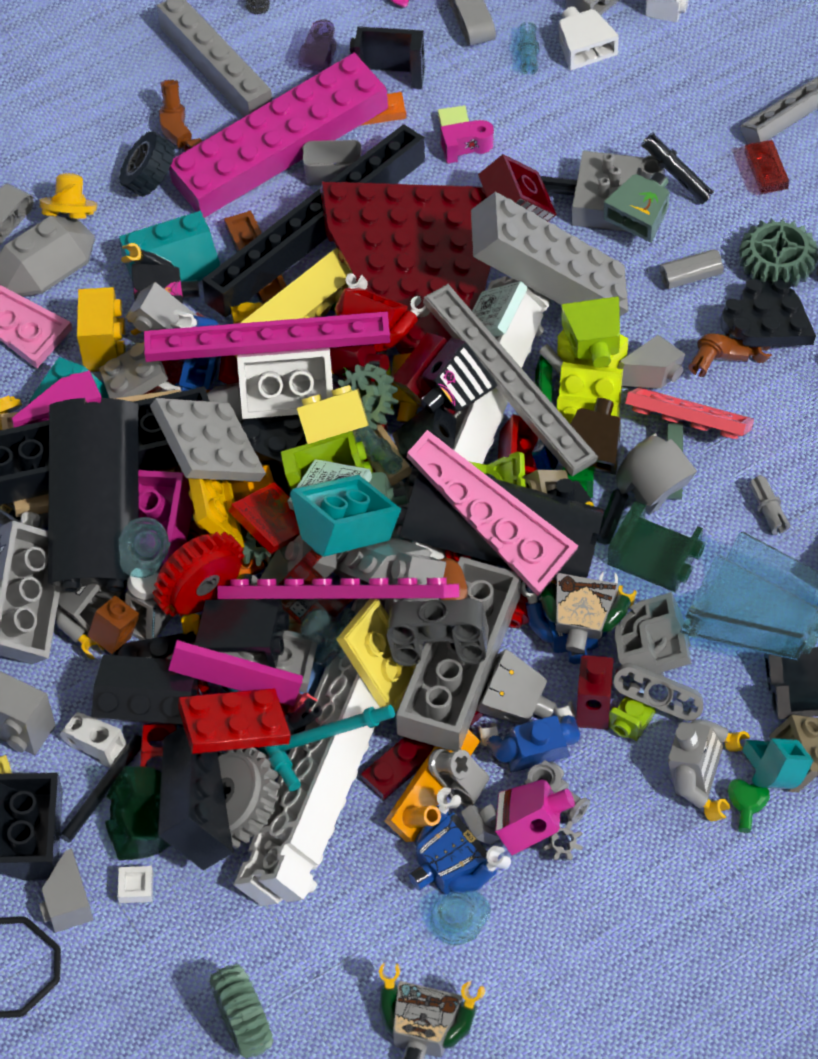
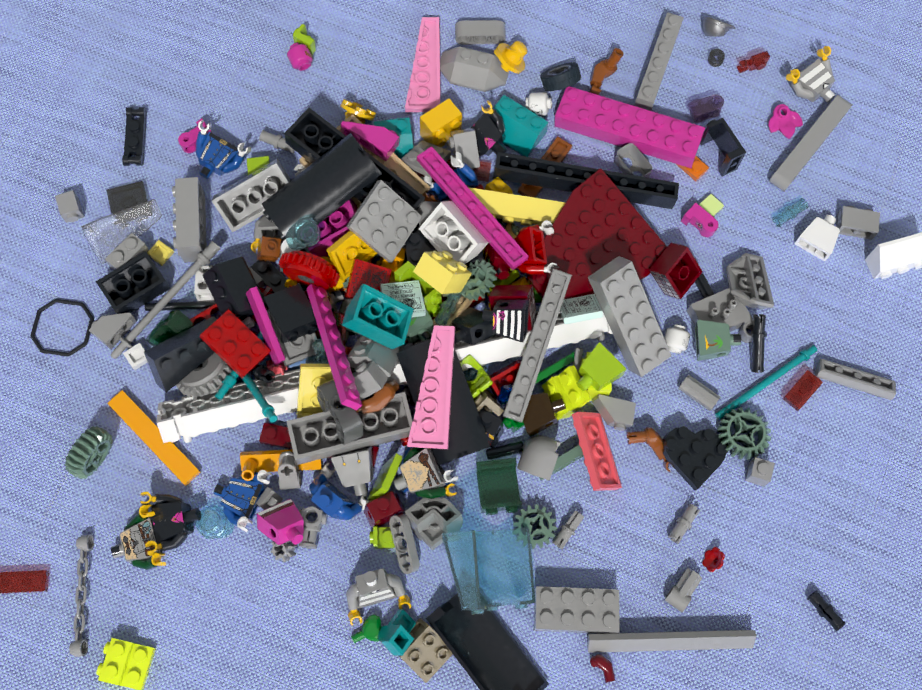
camera: 50 degrees right, 15 degrees up
(61, 711) = (202, 259): none -> light grey bar
(159, 209) = (539, 103): none -> white head
(274, 928) = (151, 436): none -> light orange tile
(423, 955) = (171, 521): none -> black torso
(555, 658) = (385, 477): none -> lime tile
(595, 129) = (750, 281): none -> light grey wedge
(607, 243) = (677, 339): none -> white head
(723, 141) = (804, 355): none -> teal bar
(733, 524) = (542, 530): none -> sand green gear

